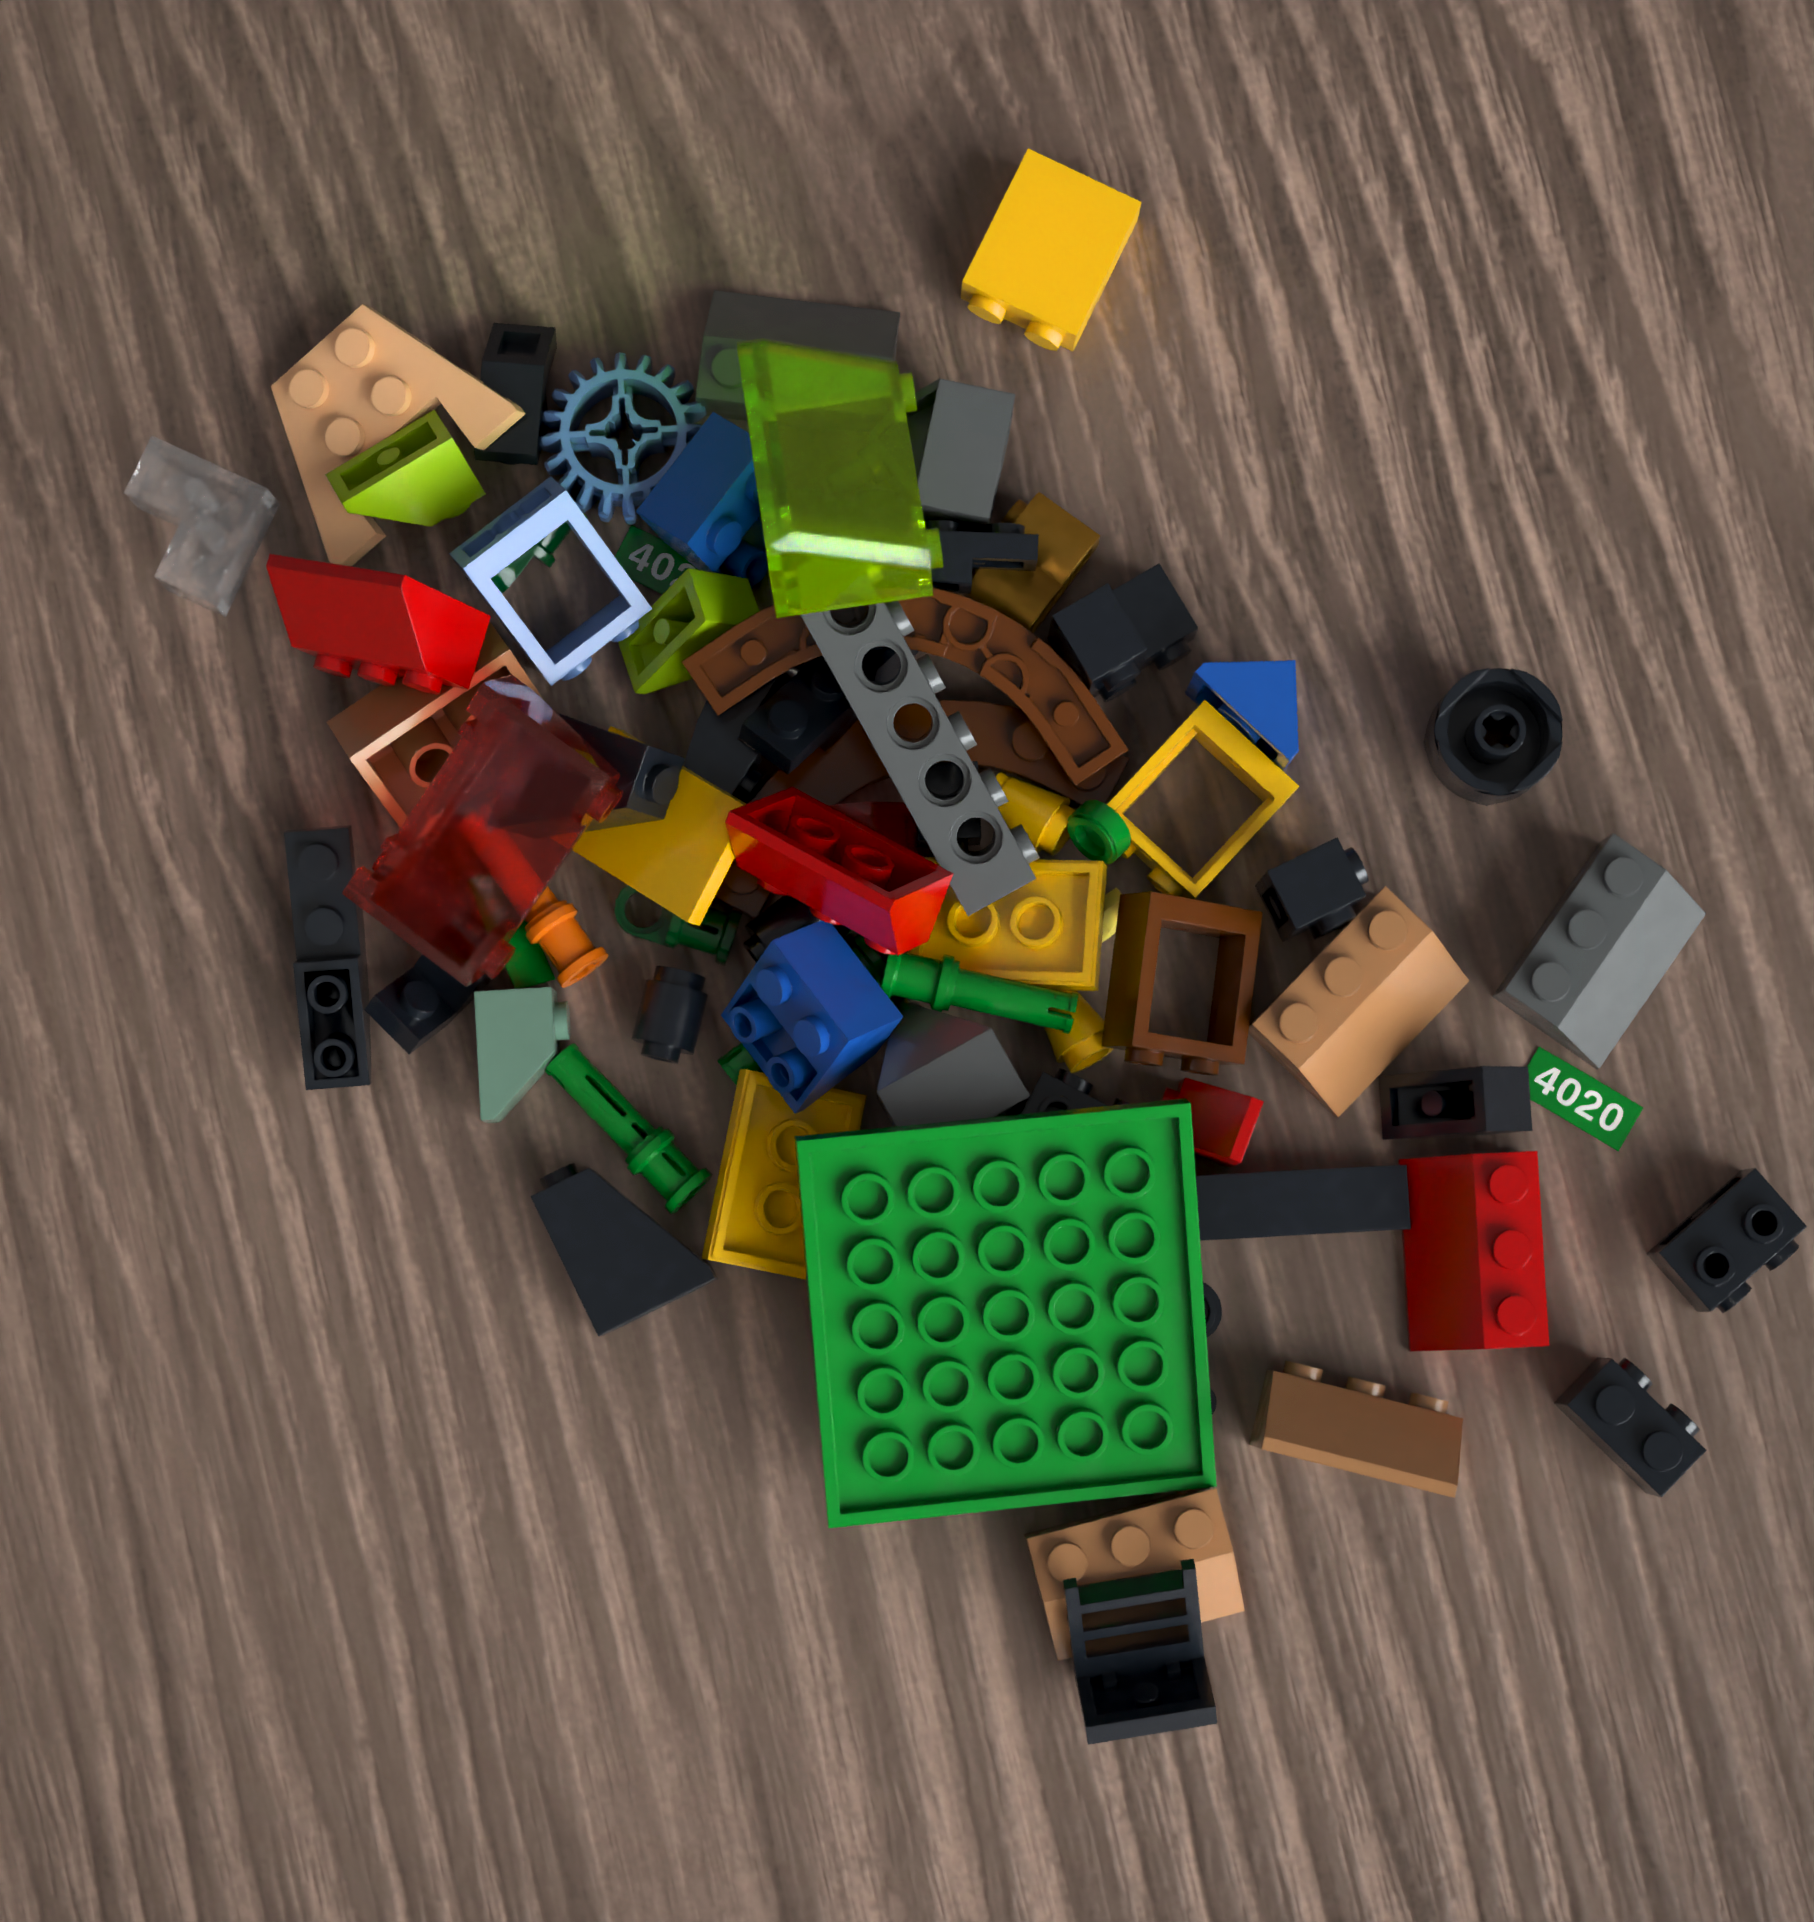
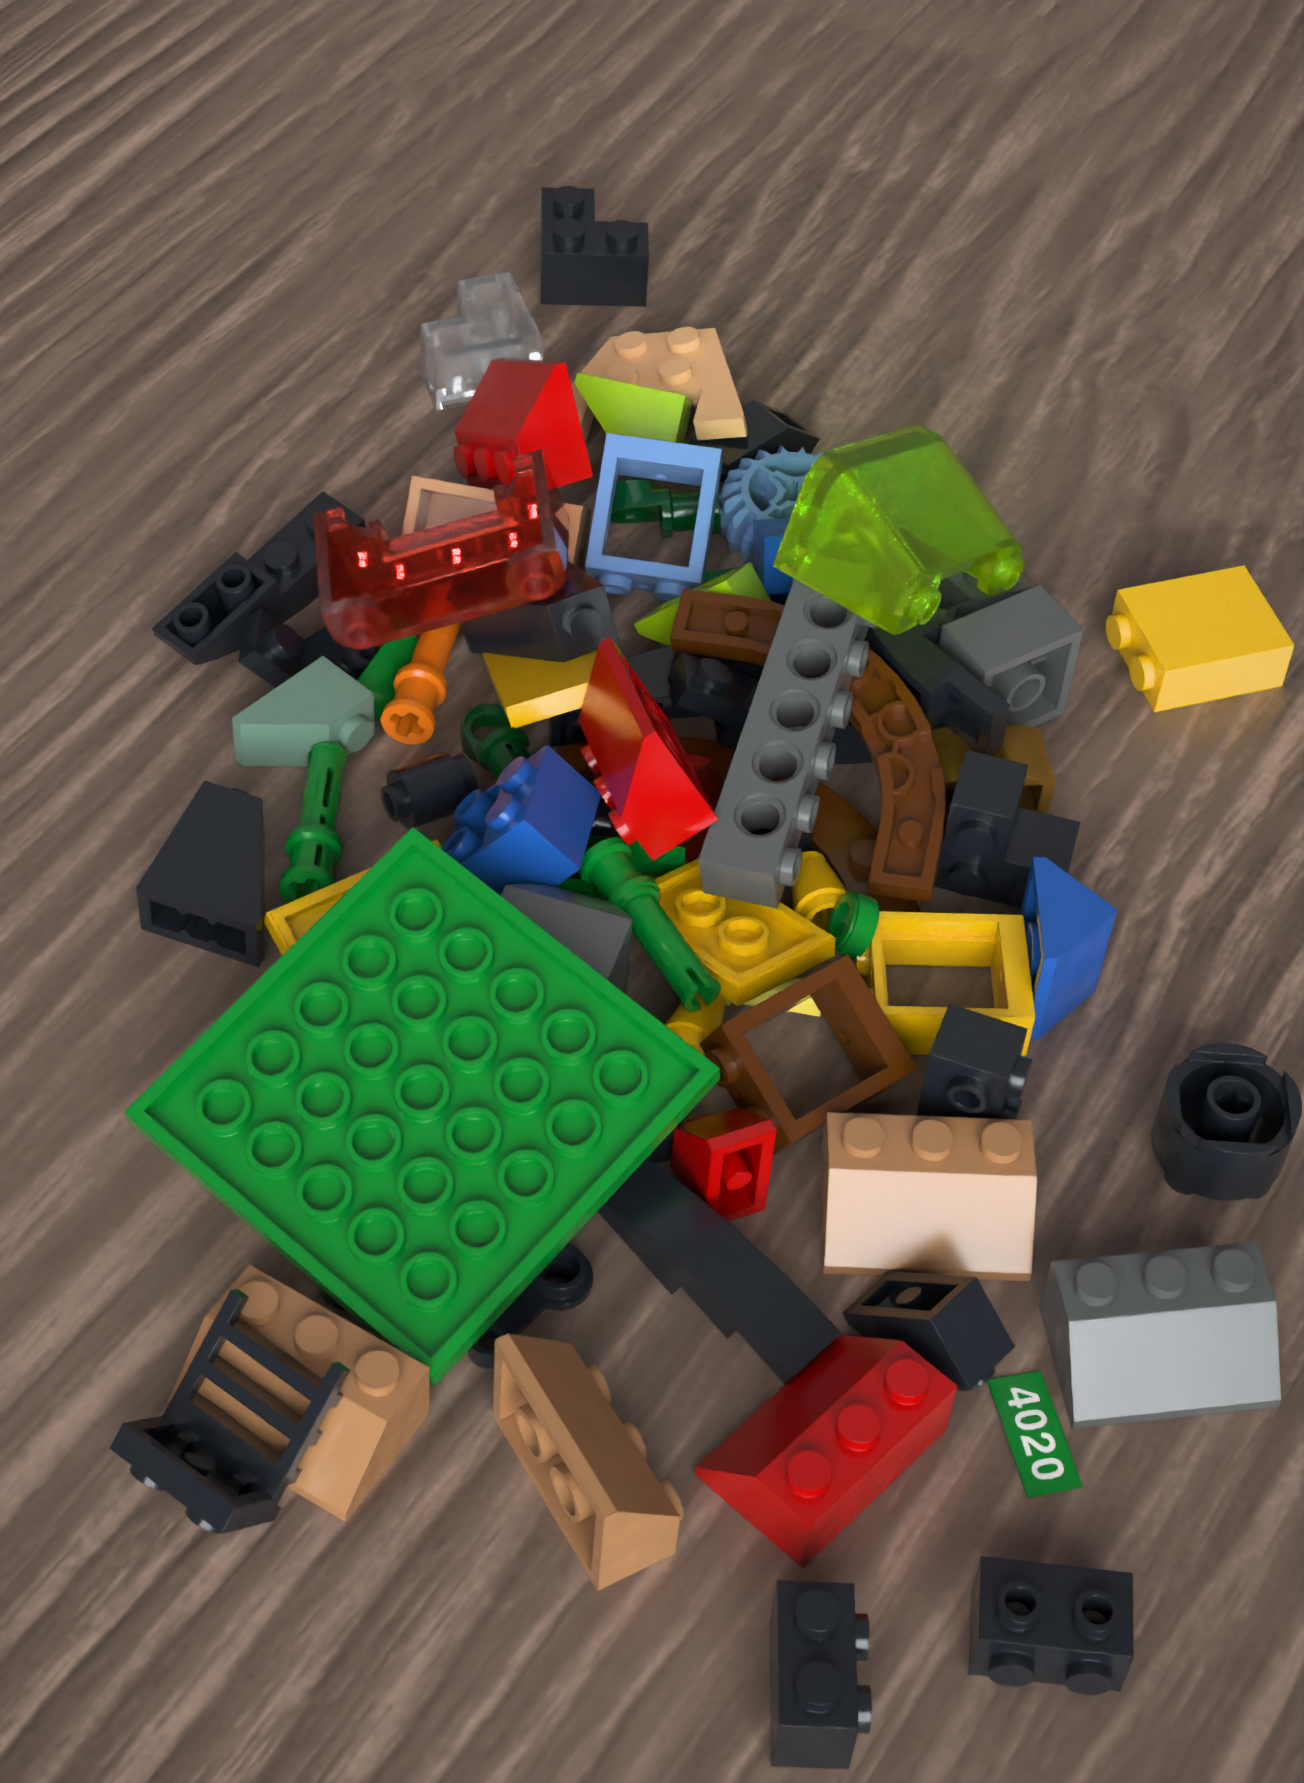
camera: 45 degrees right, 35 degrees down
(150, 326) = (589, 258): none -> black brick

